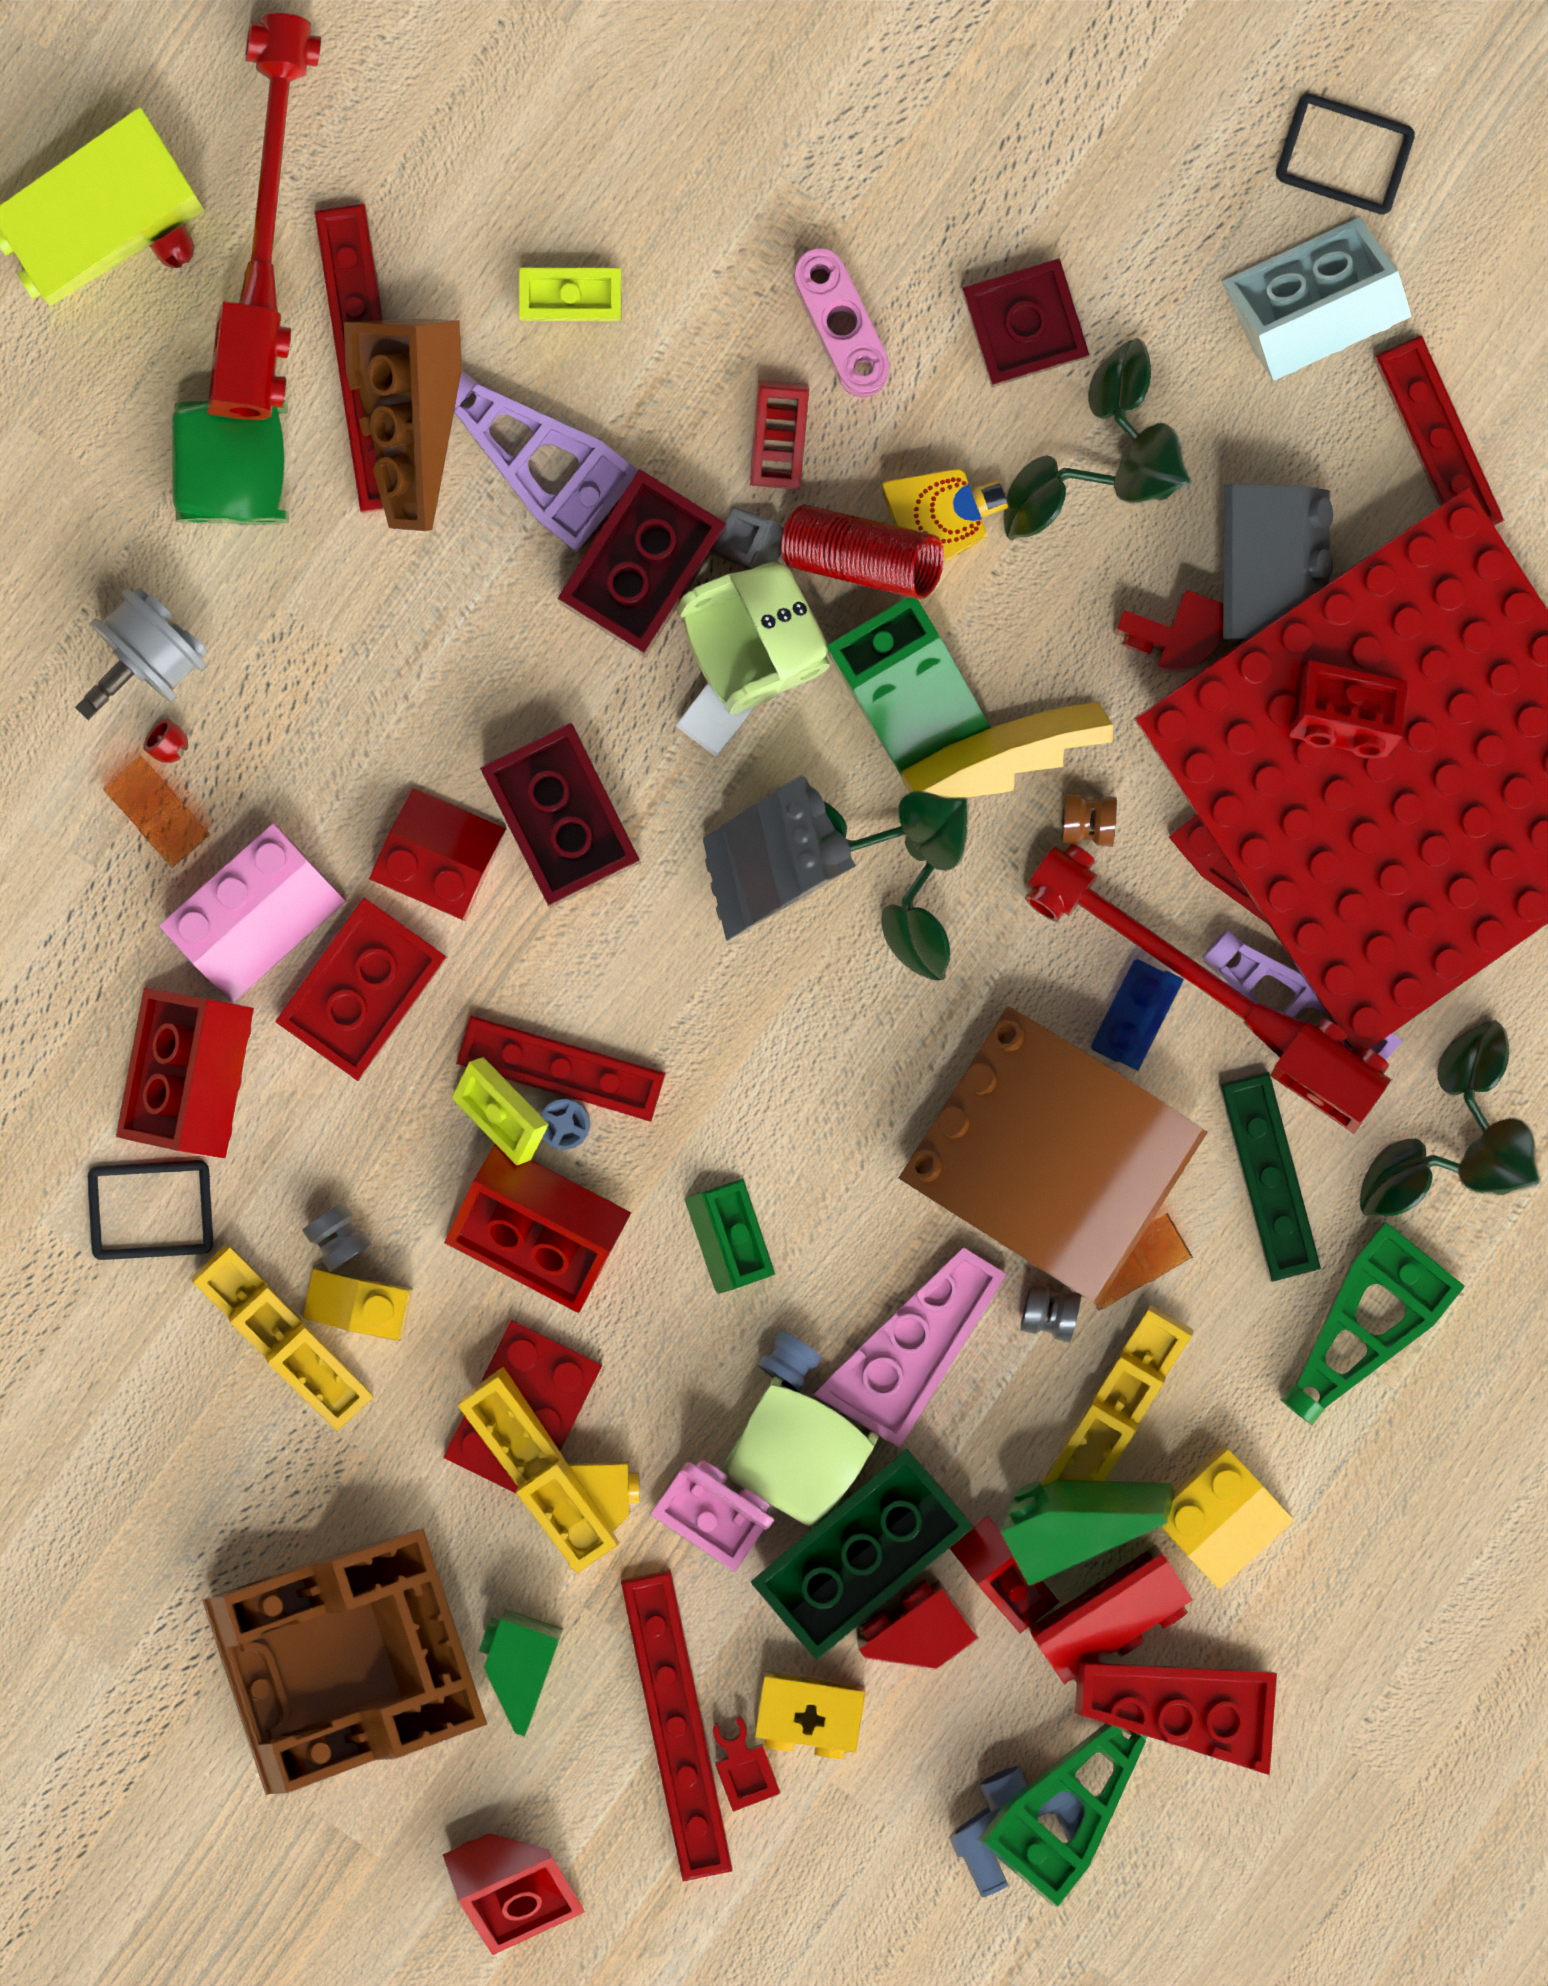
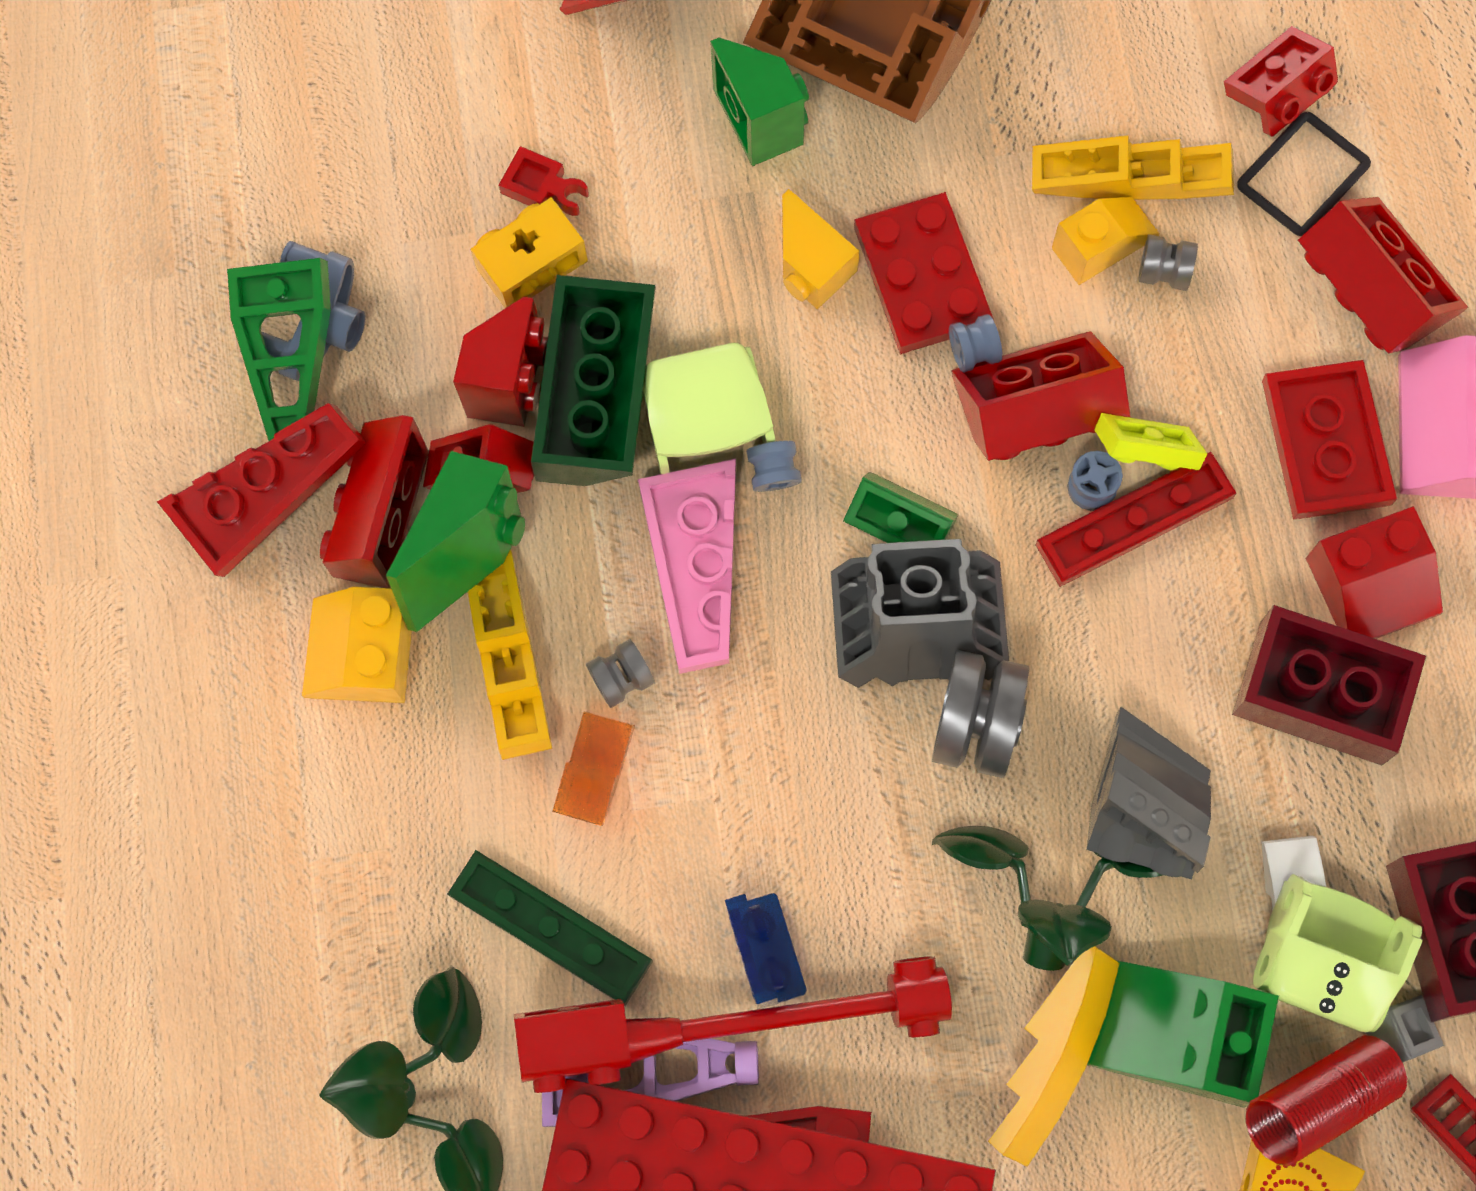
camera: 140 degrees right, 15 degrees down
(89, 1298) = (1284, 78): none -> red bracket
(538, 1469) = (857, 224): yellow slope -> none
(547, 1312) = (975, 343): none -> sand blue wheel
(676, 1725) = (615, 173): red tile -> none
(712, 1514) = (727, 315): bright pink bracket -> none
(793, 1147) = (912, 610): none -> dark grey slope
(829, 1030) = (987, 715): none -> flat silver wheel
(1053, 1154) = (727, 780): dark orange slope -> none
(1077, 819) = (955, 1058): dark orange wheel -> none
(1408, 1276) = (381, 950): green plate -> none

